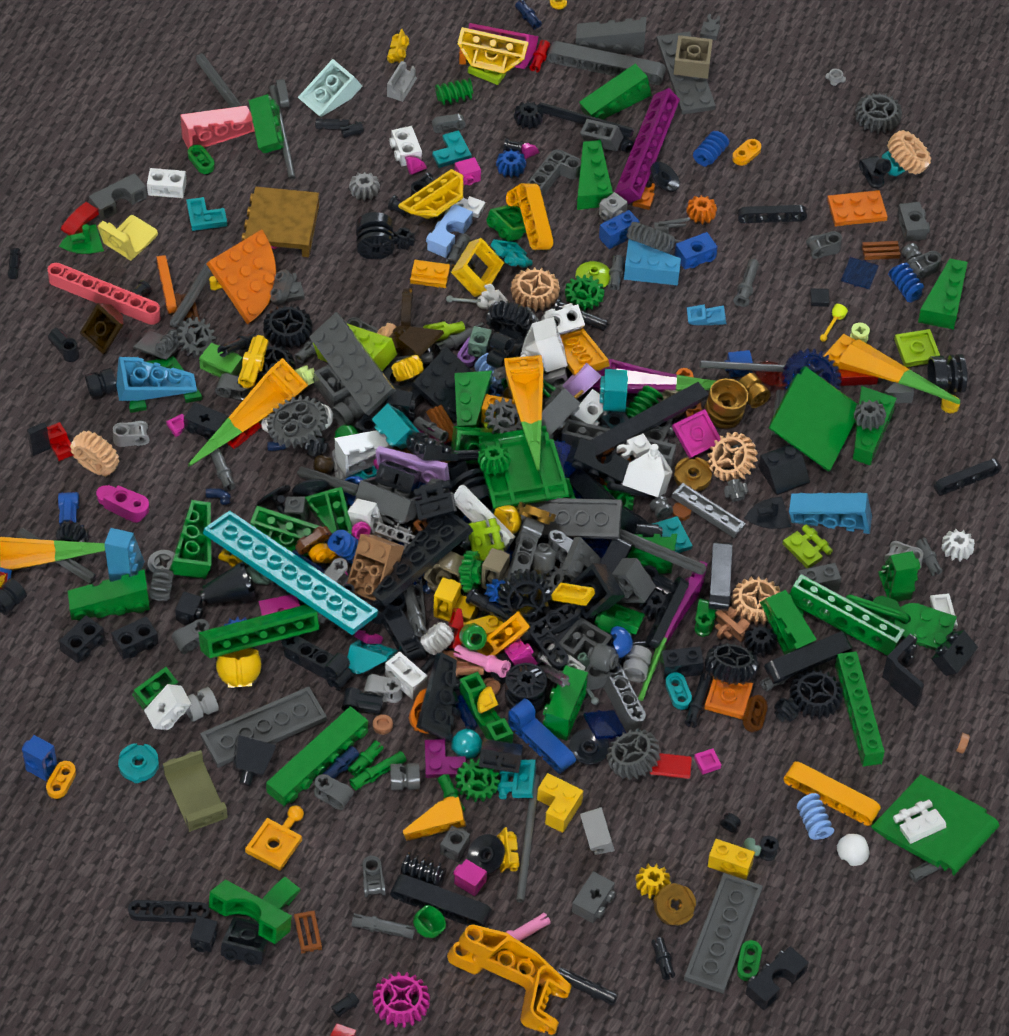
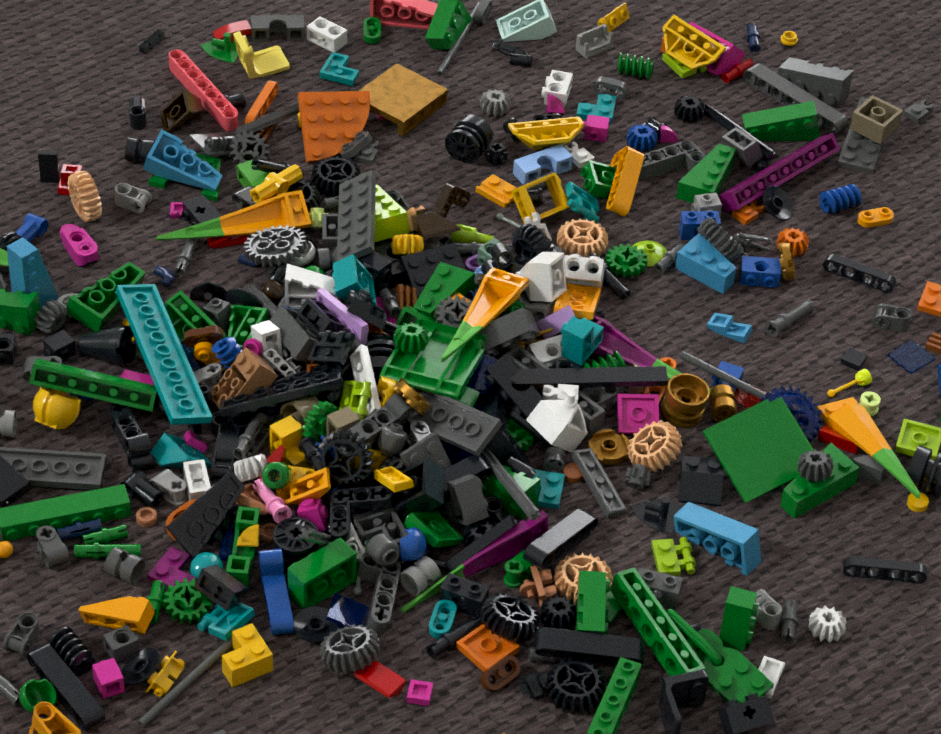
camera: 30 degrees right, 10 degrees down
(597, 831) = (262, 700): light grey hinge -> none
(714, 230) = (786, 261): none -> pearl gold plate

